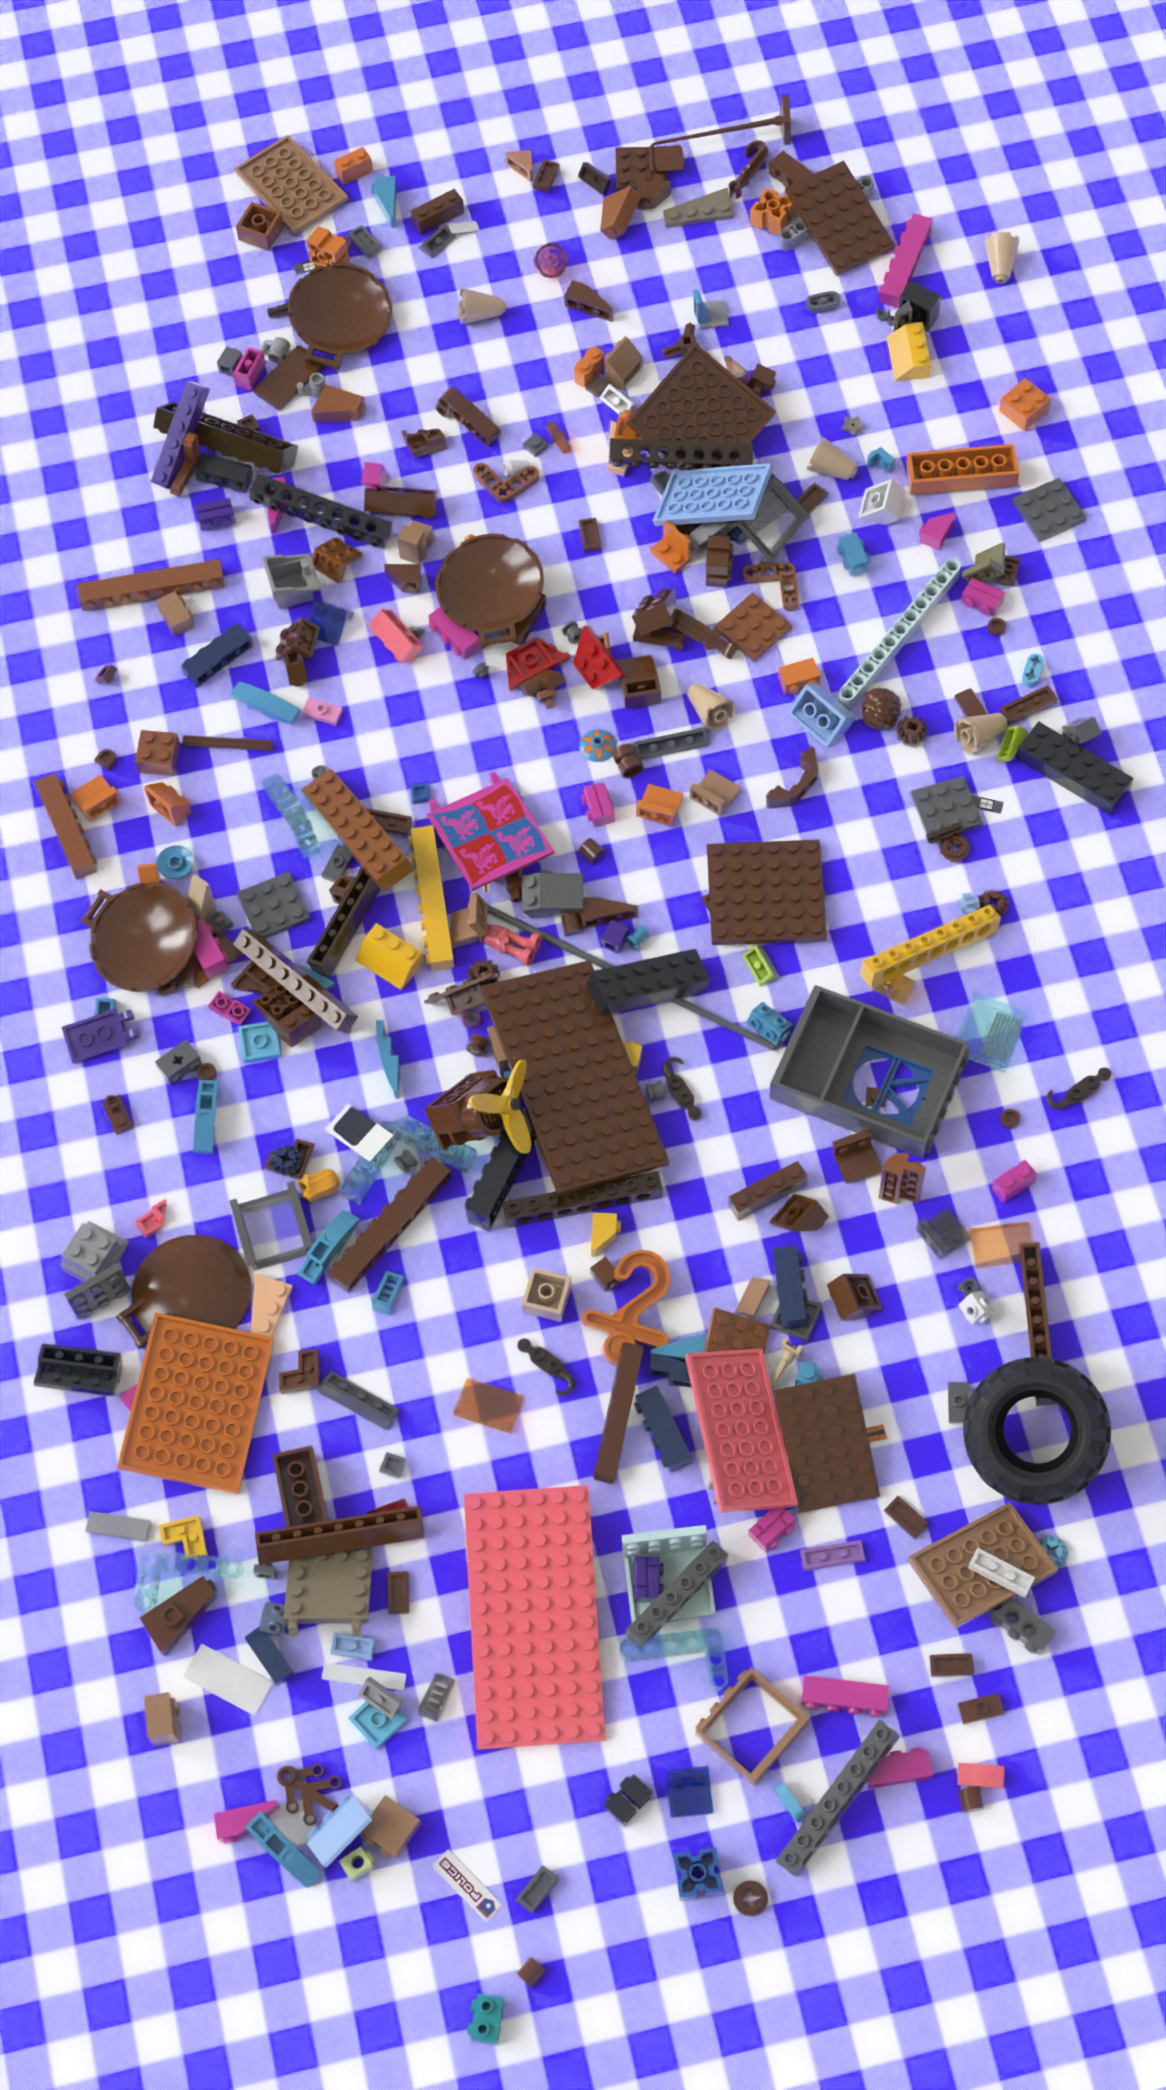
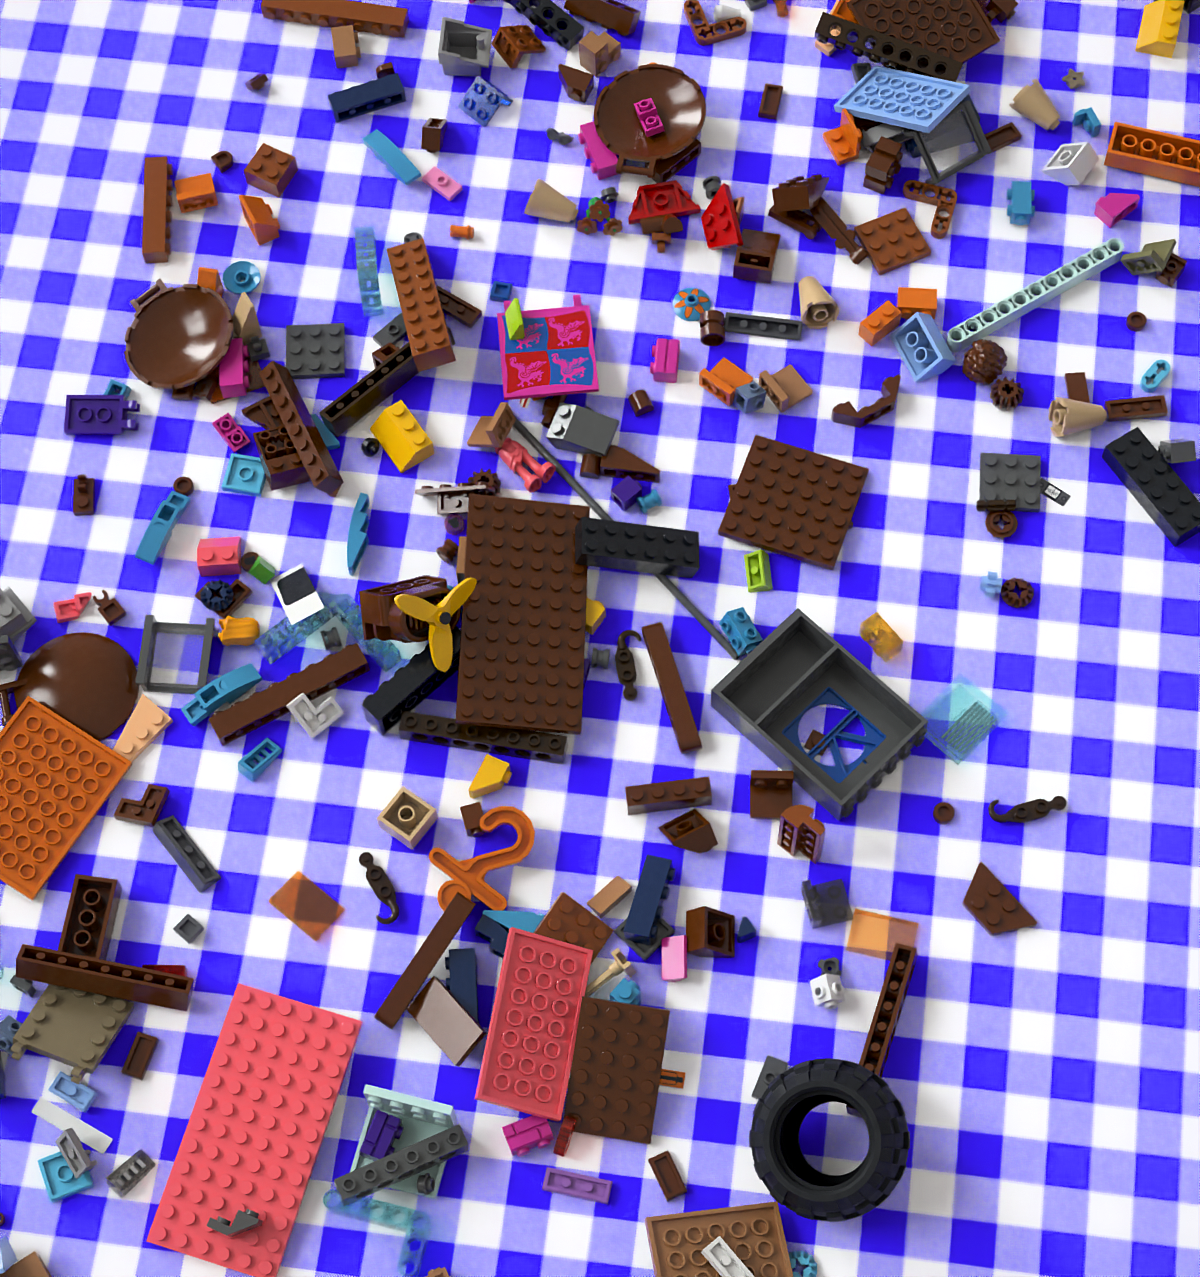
camera: 20 degrees right, 0 degrees up
(182, 1054) = (151, 465): dark grey brick -> none
(190, 1208) = (109, 609): none -> reddish brown plate
(222, 624) = (384, 70): none -> reddish brown tile
(227, 742) = (341, 183): reddish brown axle -> none
(270, 1123) = (219, 556): none -> coral slope
(298, 637) = (448, 107): reddish brown bracket -> none
(300, 1119) = (248, 560): none -> reddish brown tile
(315, 1123) = (262, 570): none -> bright green slope
(359, 750) = (462, 231): none -> orange pin
(364, 976) = (370, 446): none -> black plate
(396, 636) = (541, 135): coral brick -> none
(424, 1237) = (314, 719): none -> white plate
(431, 697) = (550, 204): none -> tan cone
(432, 898) = (467, 395): yellow brick -> none
(448, 815) = (514, 320): none -> lime slope
(481, 689) = (598, 211): none -> dark orange plant
(489, 587) = (649, 117): none -> dark pink slope
(560, 1697) = (243, 1222): none -> dark grey slope
(660, 1457) = (446, 1021): none -> tile
(688, 812) = (749, 397): none -> sand blue brick
(703, 1604) = (425, 1184): none -> dark grey plate
(729, 1095) = (671, 688): none -> reddish brown beam
(774, 705) = (879, 323): none -> orange brick
(805, 1516) = (564, 1136): none -> clear red beam
(833, 1329) = (674, 958): none -> slope
(885, 1282) = (746, 930): none -> dark blue slope
(930, 946) = (932, 611): yellow brick -> none
(983, 597) = (1134, 287): dark pink brick -> none
(1012, 739) = (1104, 436): lime slope -> none
(1014, 1181) = (919, 877): dark pink brick -> none
(1085, 1181) = (994, 905): none -> reddish brown wing

